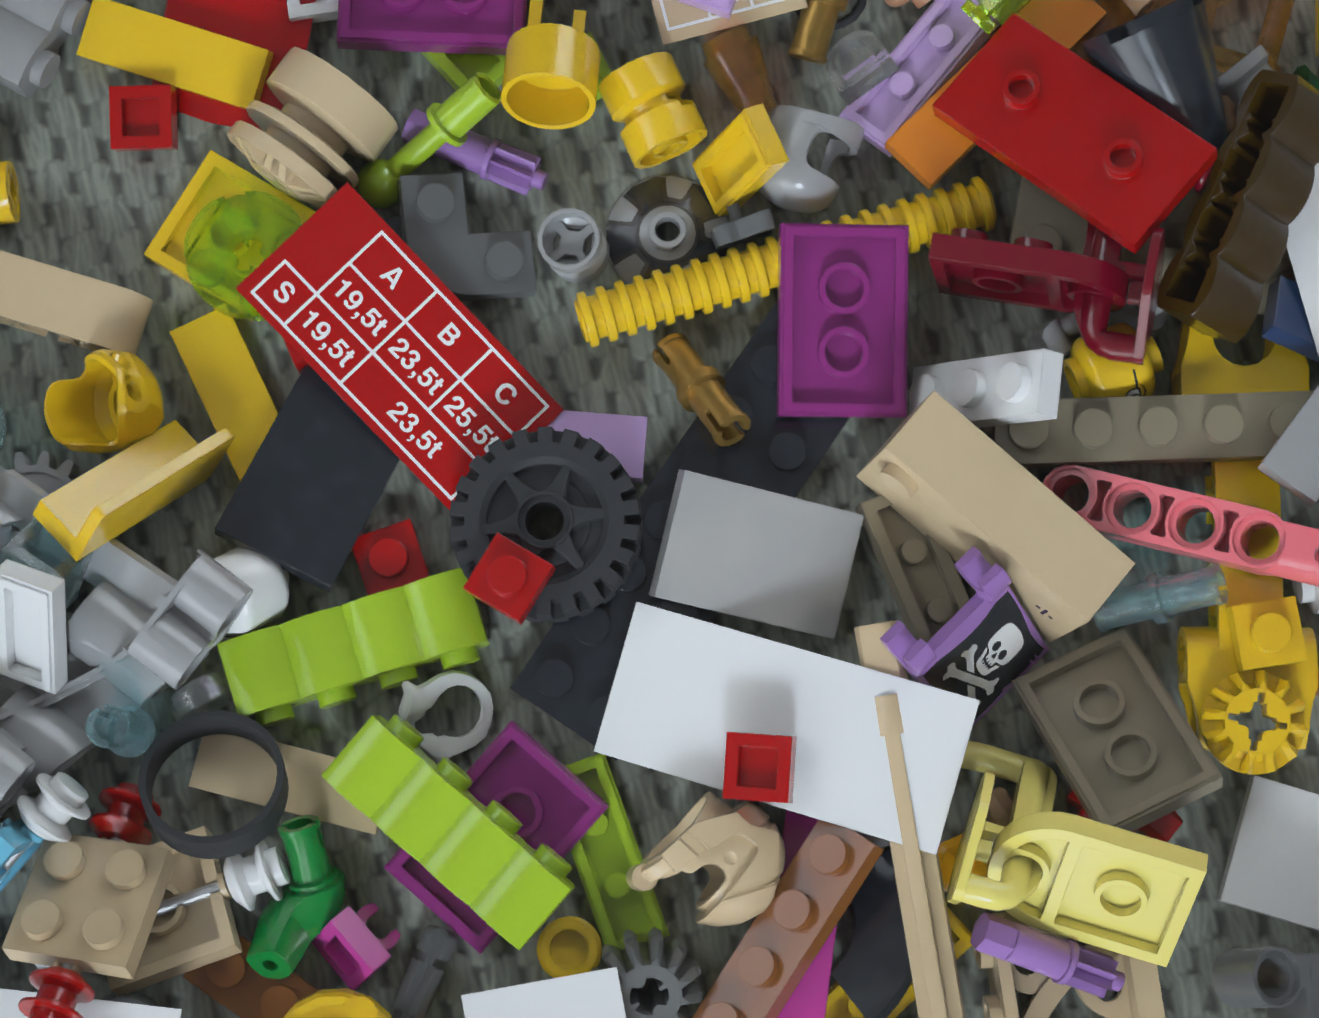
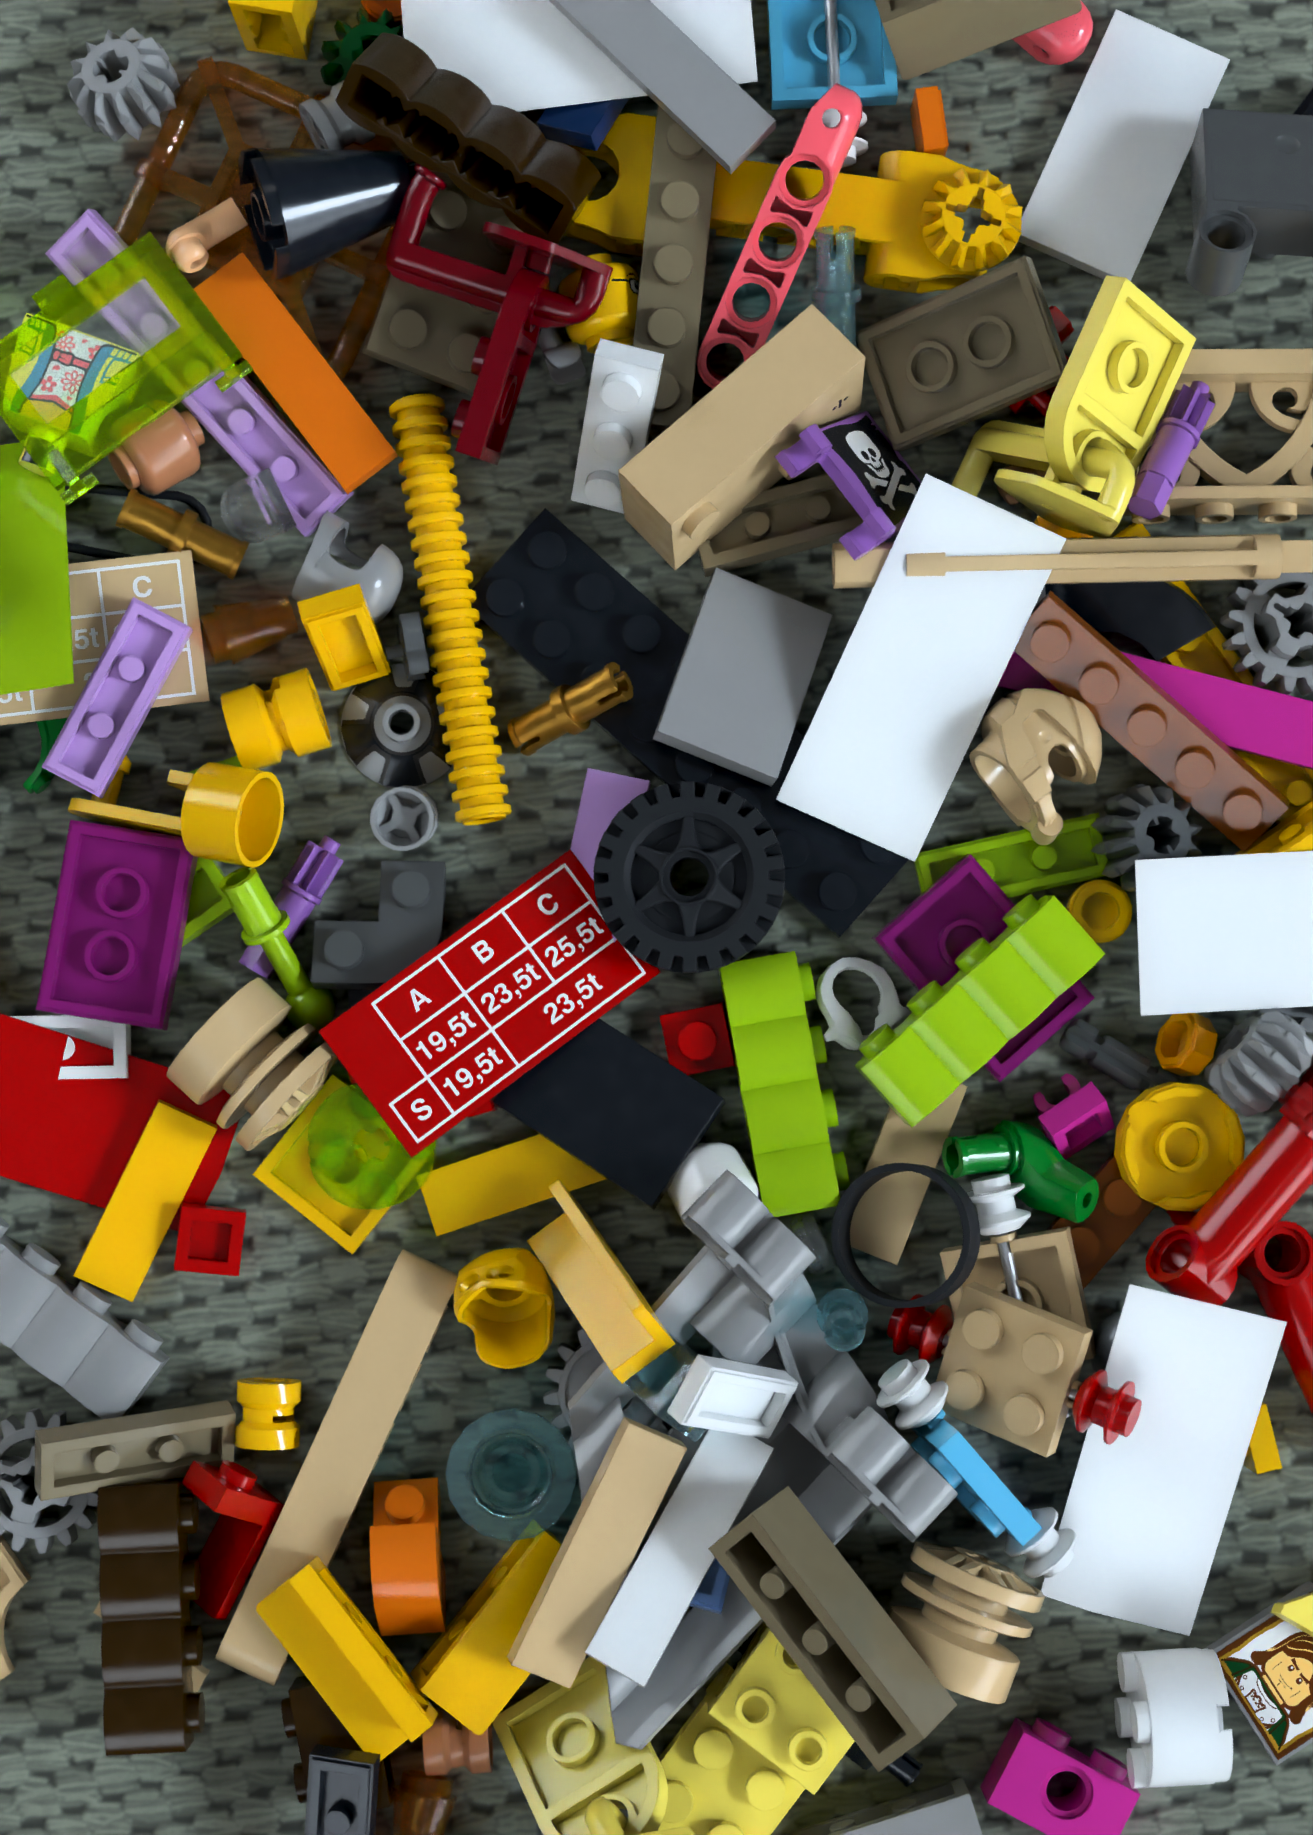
camera: 85 degrees left, 5 degrees up
(509, 578) = (744, 916): red plate -> none
(759, 767) = (960, 696): red plate -> none
(842, 320) = (522, 558): magenta tile -> none
(1075, 132) = (368, 298): red plate -> none
(1266, 634) = (888, 194): yellow plate -> none

